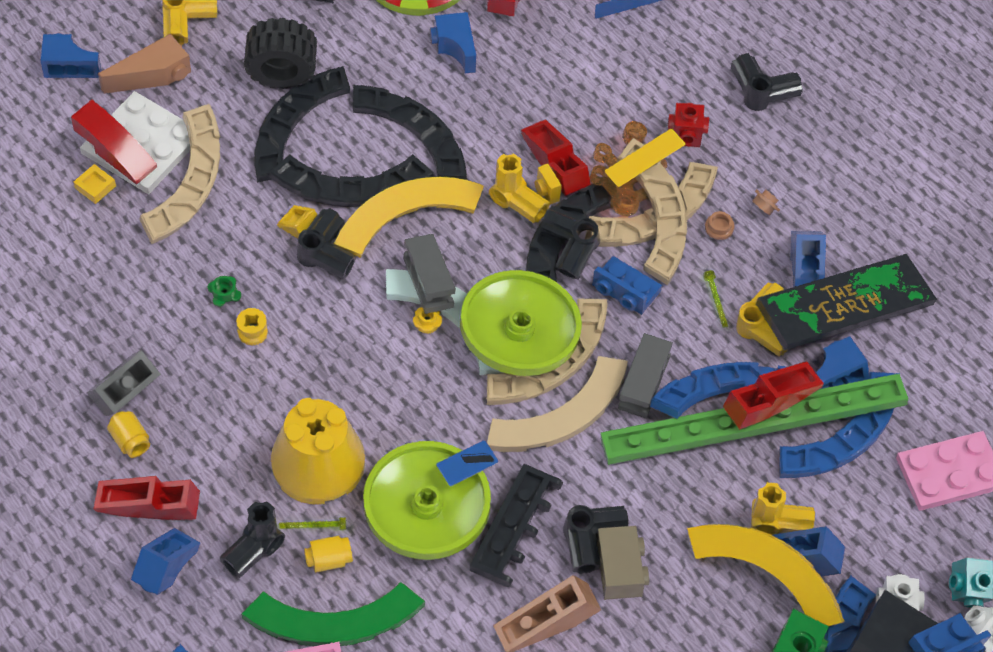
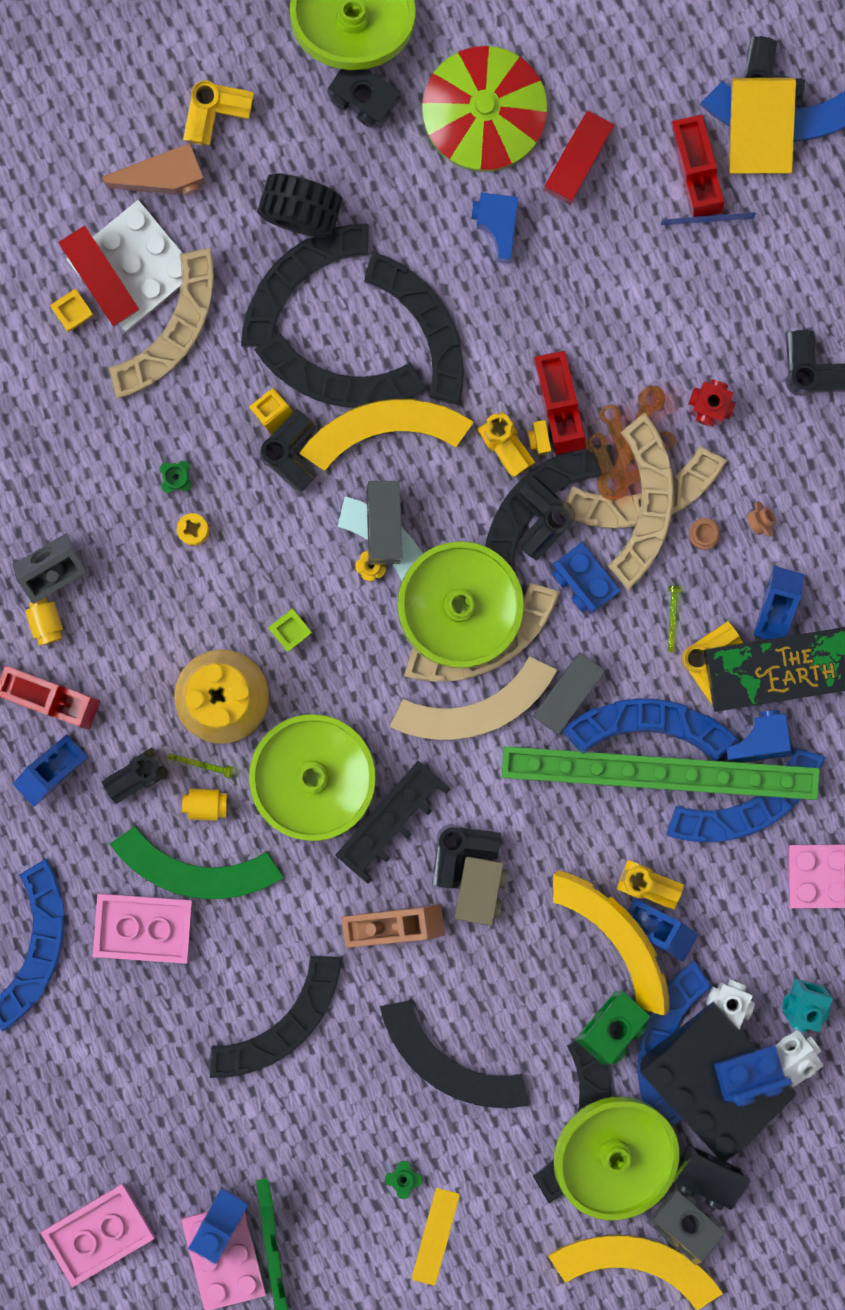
camera: 20 degrees right, 30 degrees up
(66, 60) = (69, 137): blue arch -> none
(367, 383) = (290, 630): none -> lime tile
(467, 463) = (360, 752): blue sticker -> none
(644, 157) = (649, 441): yellow sticker -> none
(771, 394) = (683, 760): red slope -> none

